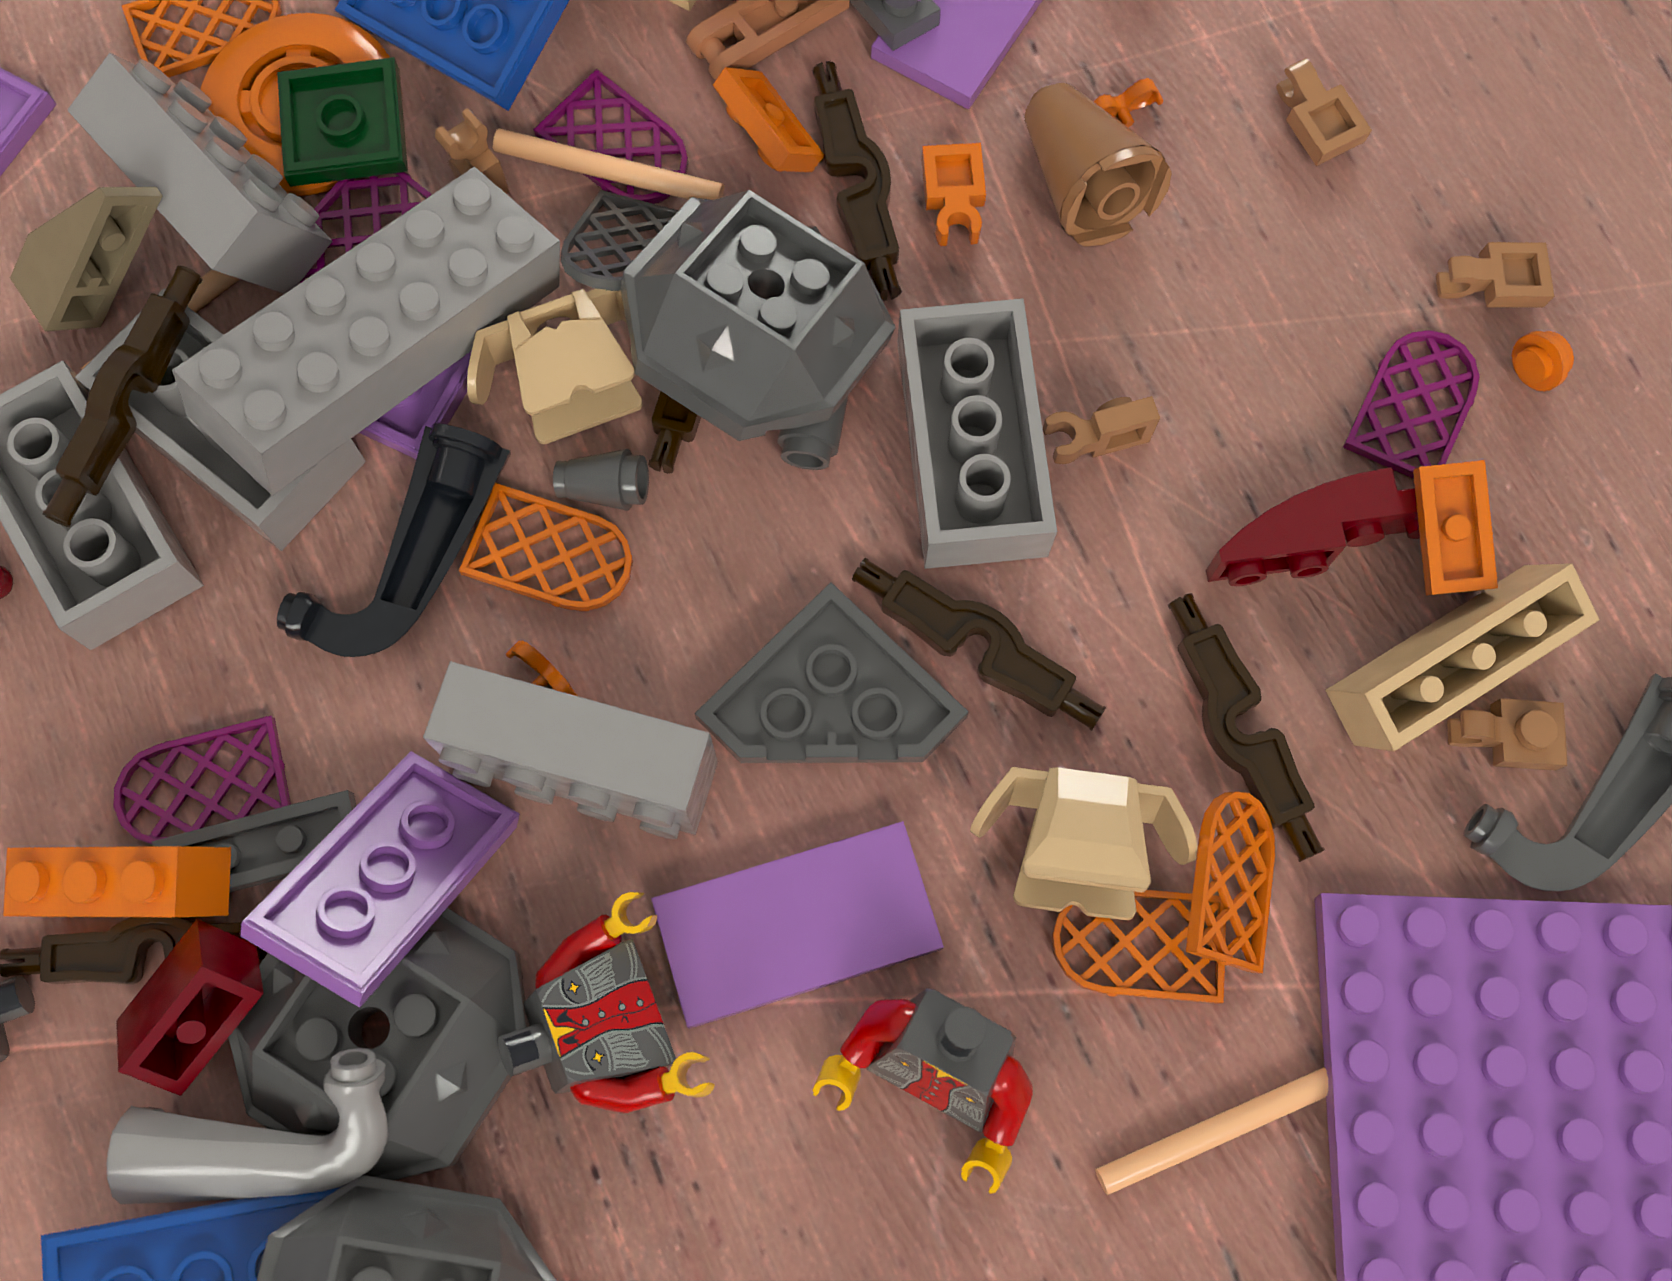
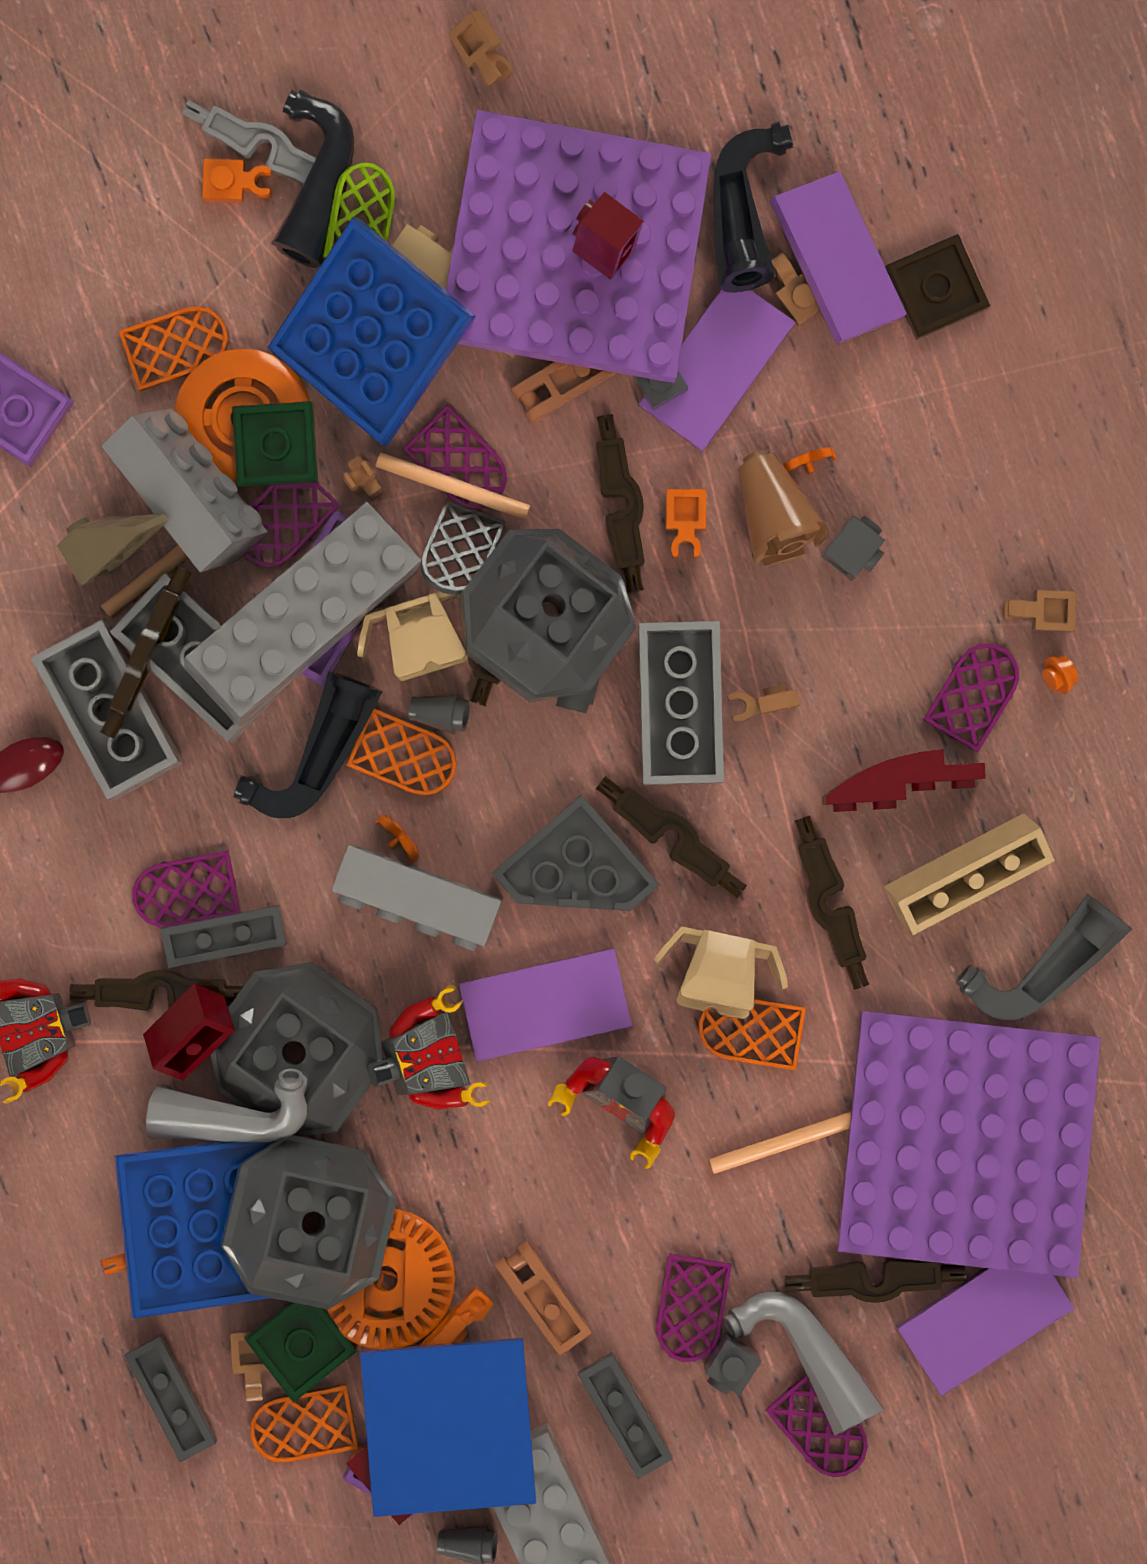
camera: 10 degrees right, 15 degrees up
(117, 881) = (145, 956): orange brick -> none
(380, 878) = (303, 964): medium lavender tile -> none
(768, 120) = (563, 459): orange plate -> none
(1207, 208) = (855, 547): none -> dark grey brick
(1262, 882) = (791, 991): orange window -> none
(1321, 118) = (944, 485): medium nougat plate -> none
(1455, 527) = (975, 794): orange panel -> none
(1518, 731) = (1001, 921): medium nougat plate -> none

